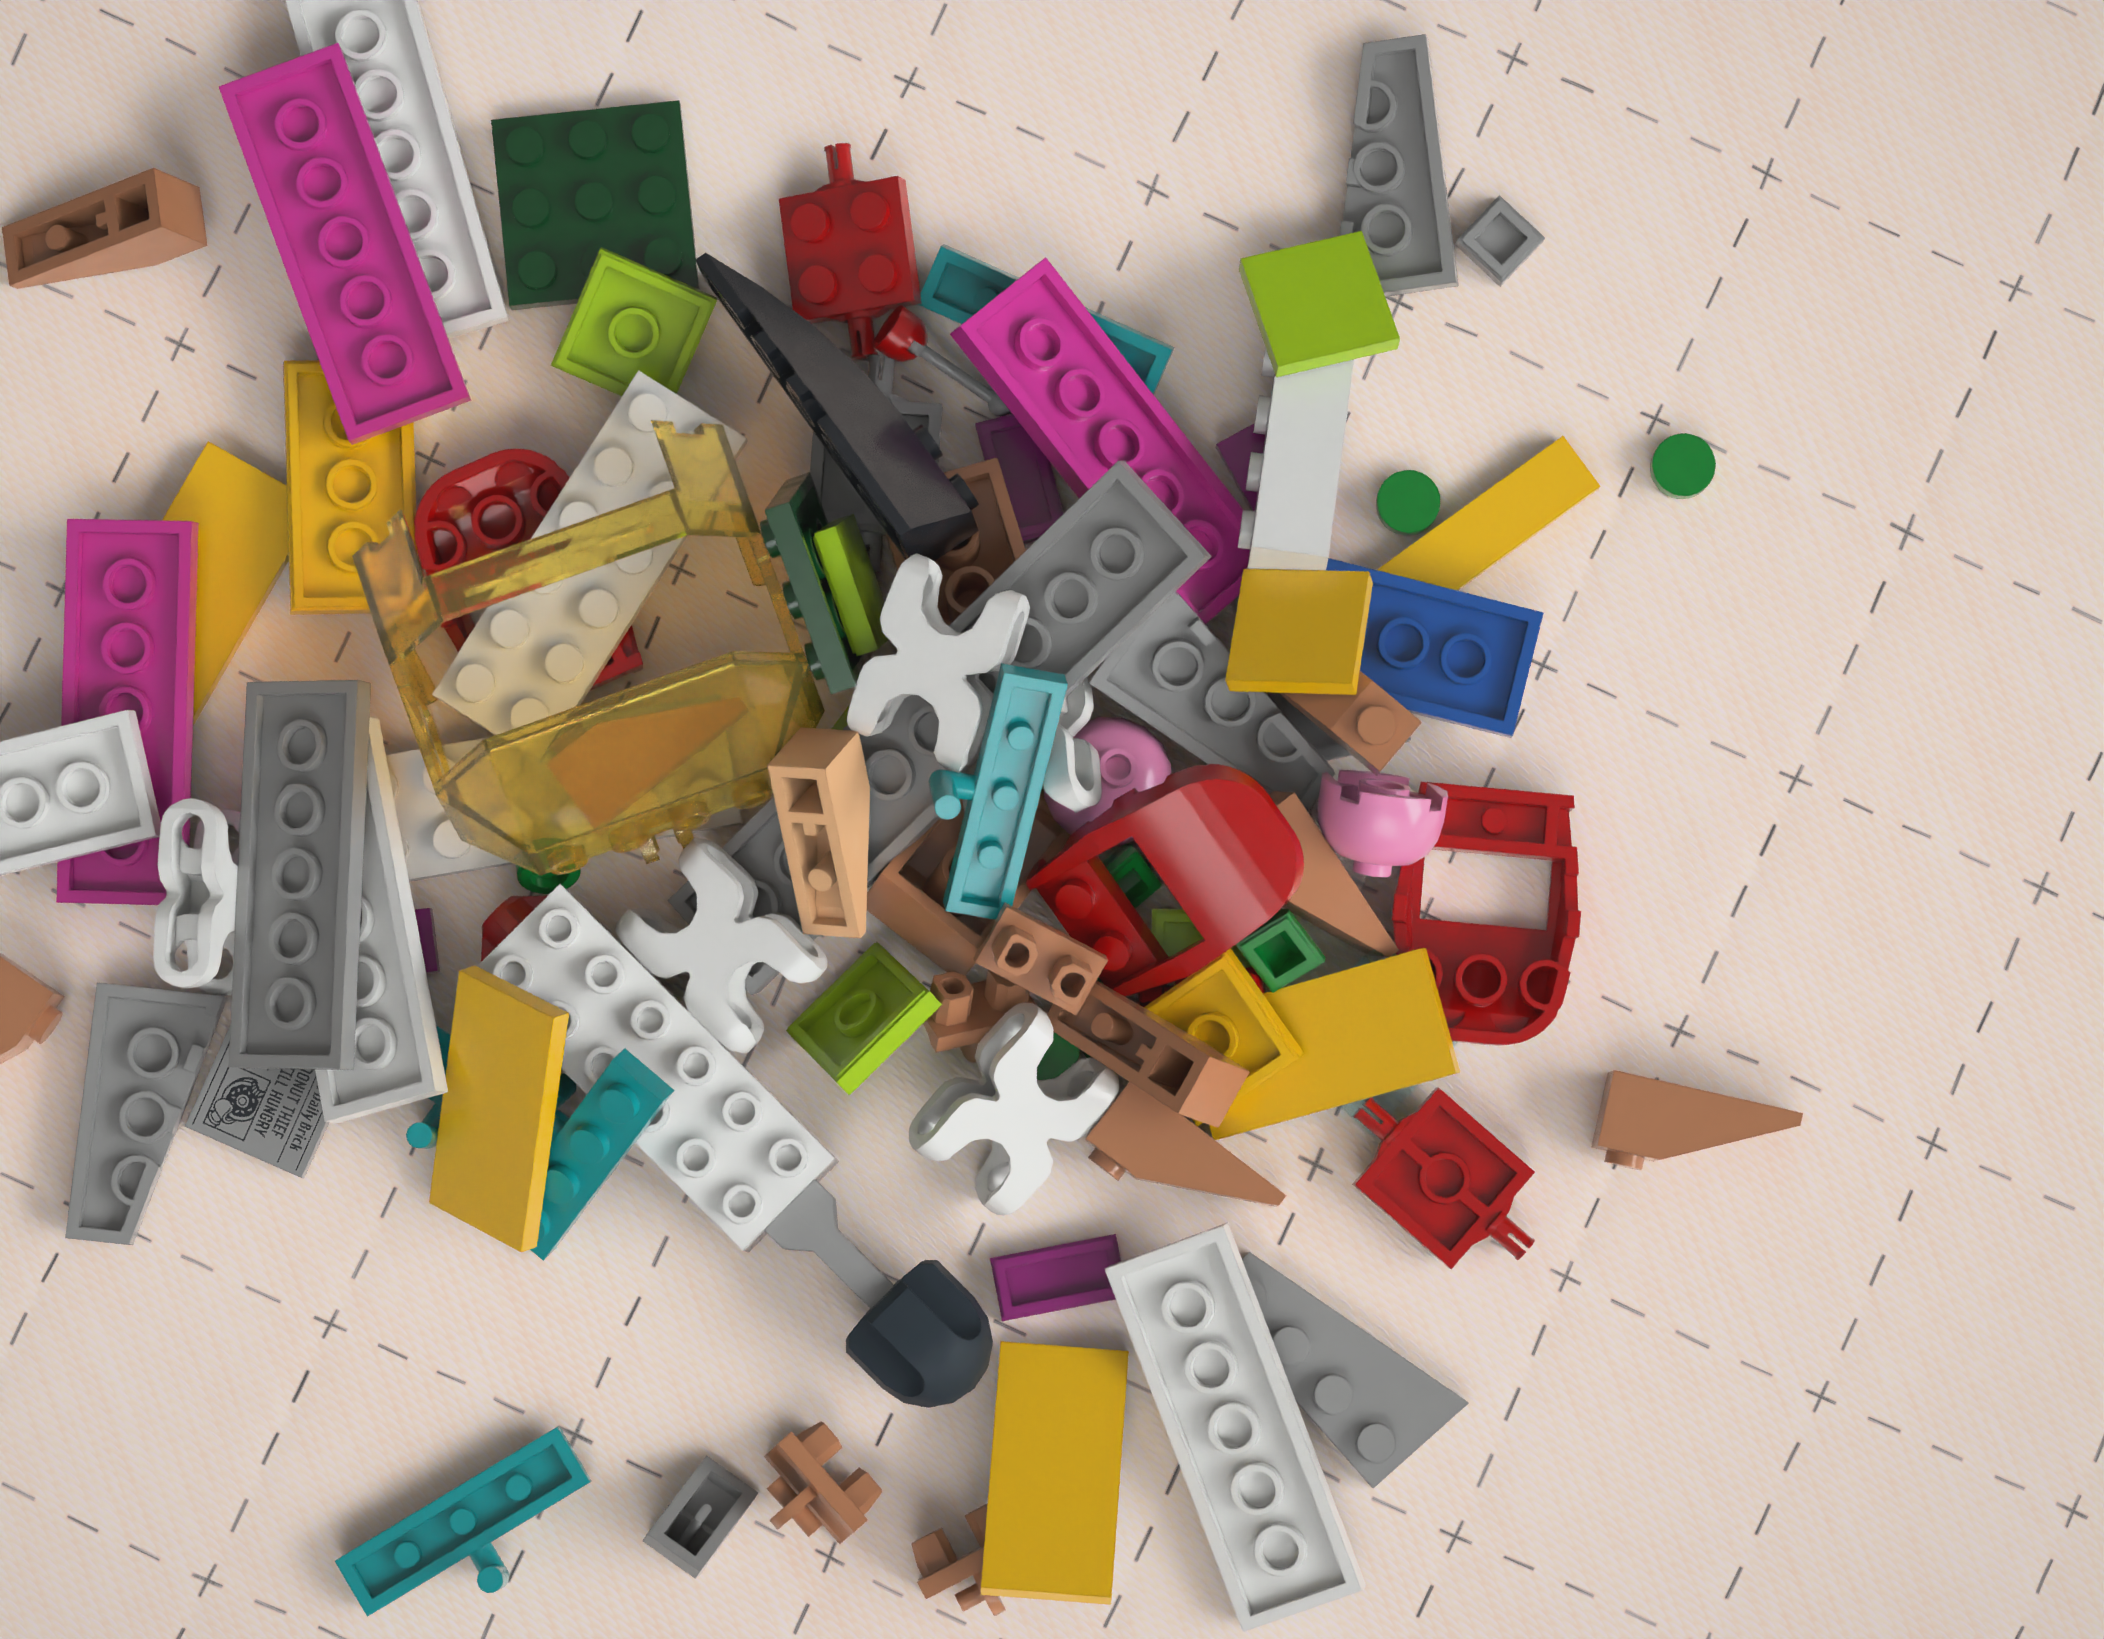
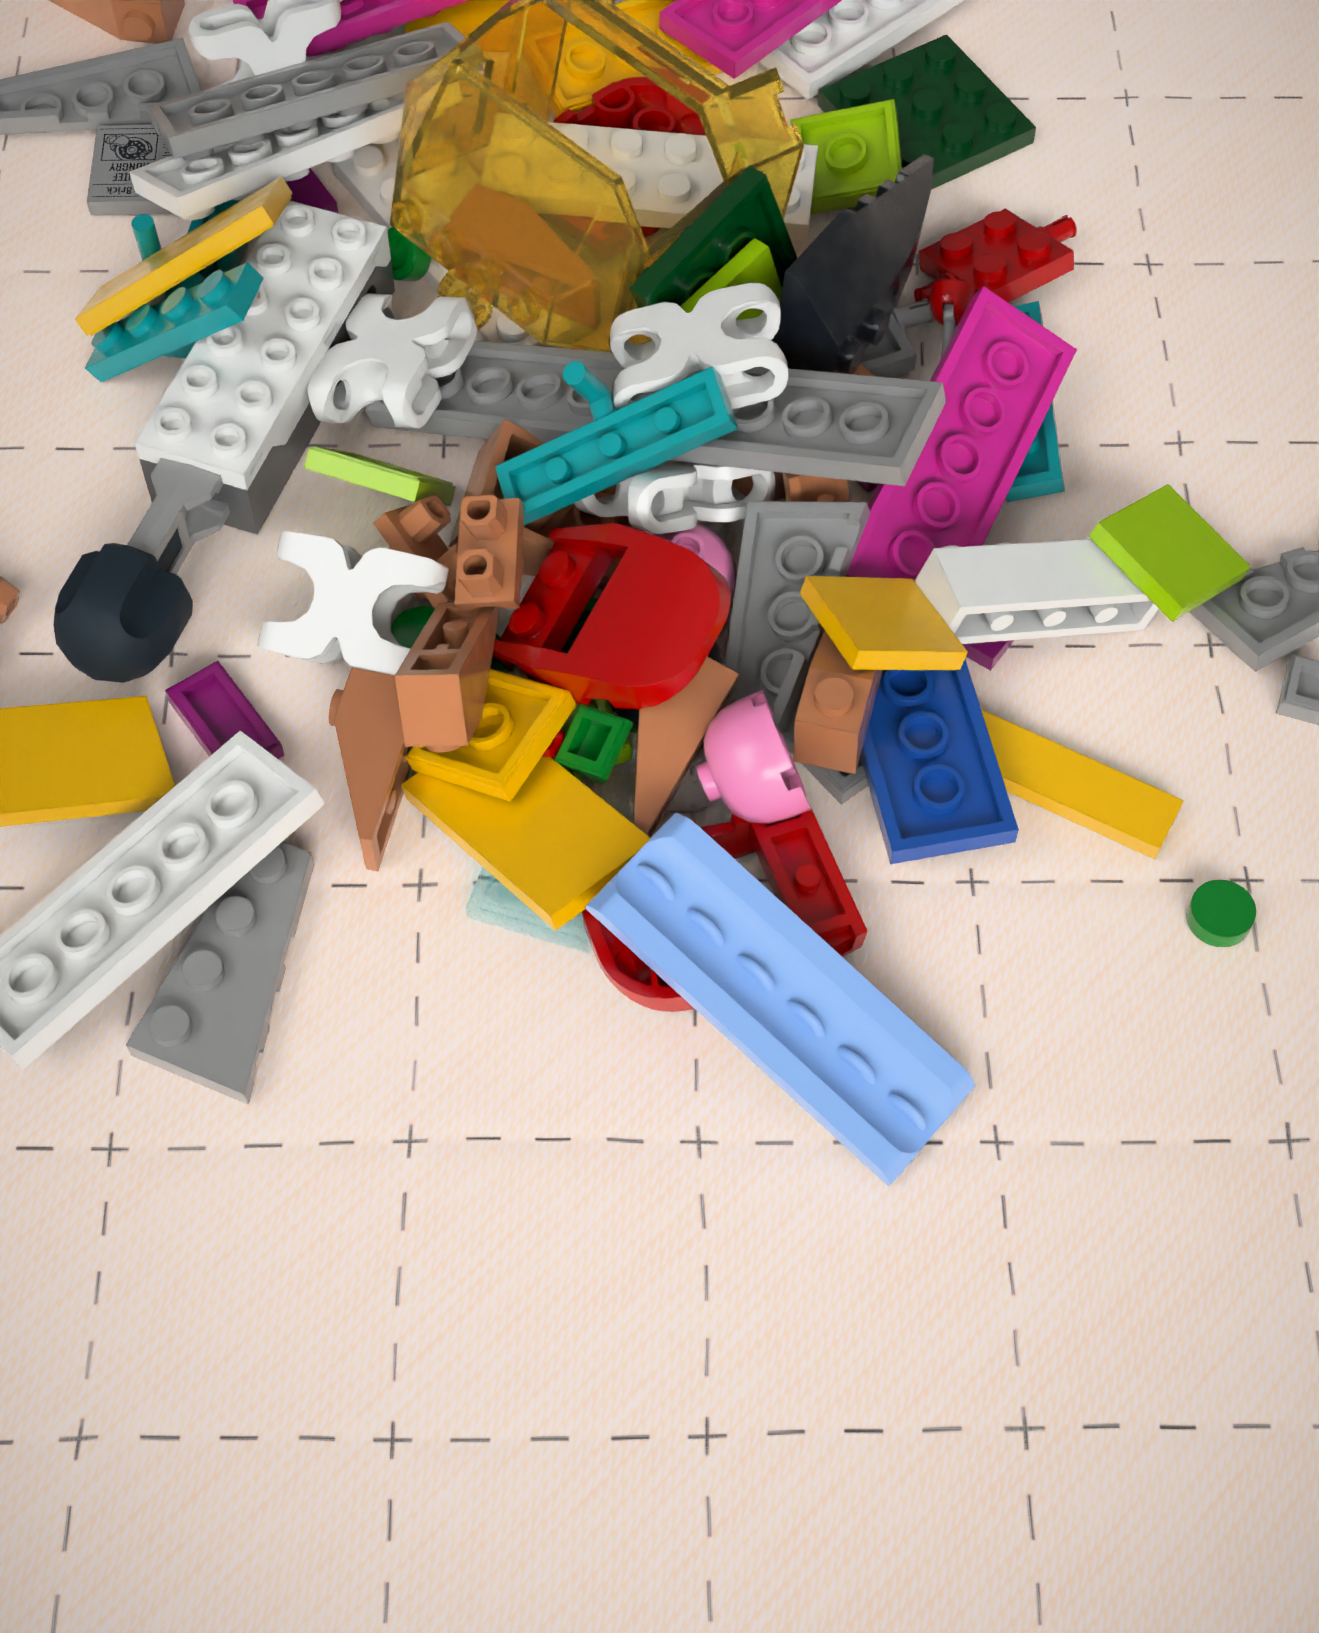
camera: 65 degrees right, 25 degrees down
(824, 826) = (522, 357): light nougat slope -> none
(1408, 502) = (1048, 710): green tile -> none
(1443, 1178) = (452, 981): red plate -> none
(1607, 907) = (783, 996): none -> light blue plate
(1664, 1120) = (605, 1162): nougat slope -> none

